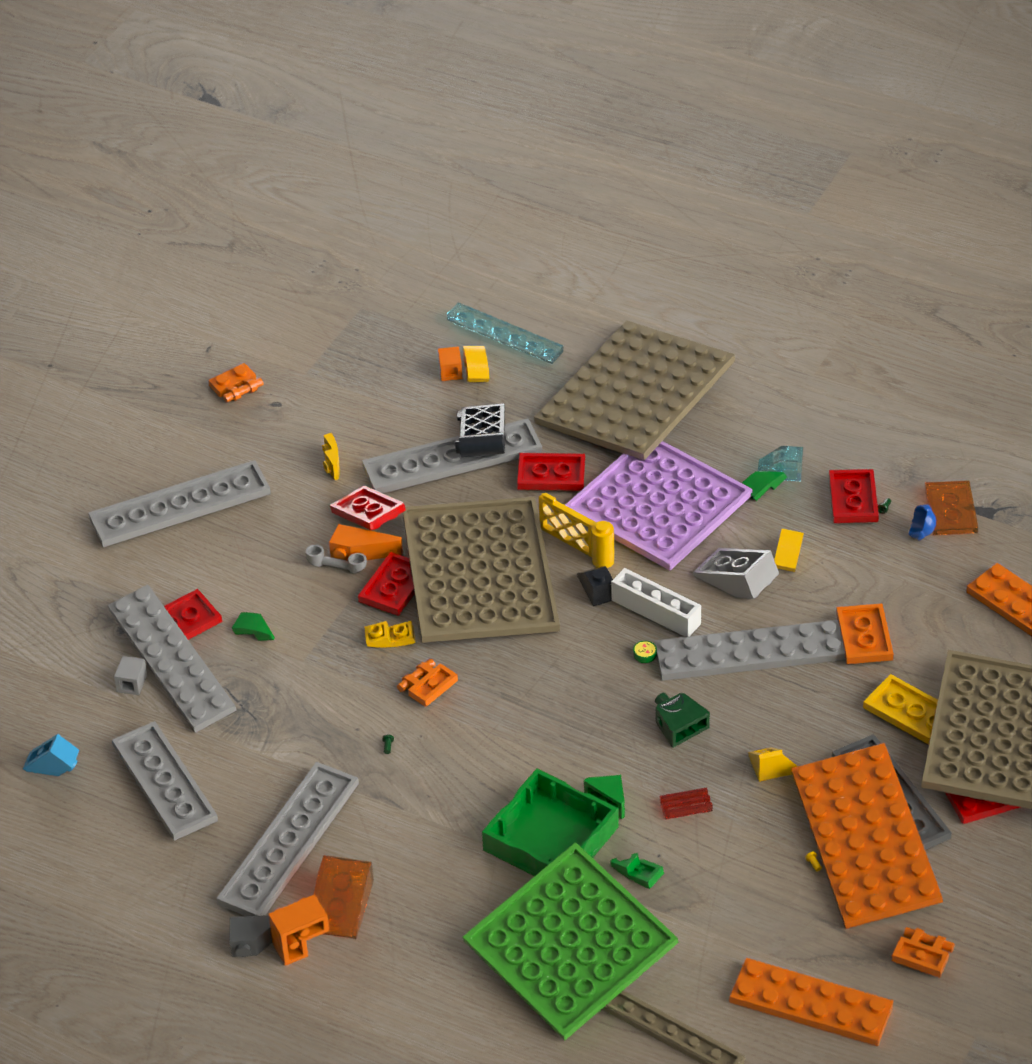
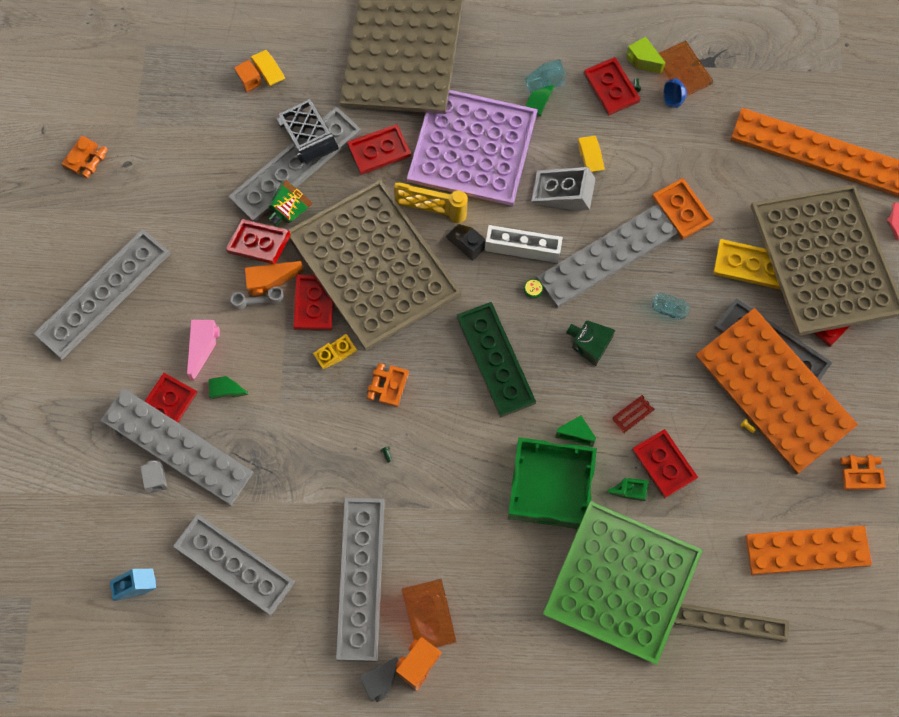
camera: 30 degrees left, 25 degrees up
(250, 580) = (202, 341): none -> bright pink slope
(330, 451) = (203, 202): yellow slope -> none
(420, 485) = (287, 204): none -> torso
(505, 333) = (274, 29): clear light blue plate -> none
(560, 699) = (496, 359): none -> dark green plate
(692, 859) = (664, 463): none -> red plate
(770, 763) = (673, 352): yellow slope -> none
(794, 718) = (670, 305): none -> clear light blue plate
(908, 479) = (644, 56): none -> lime slope

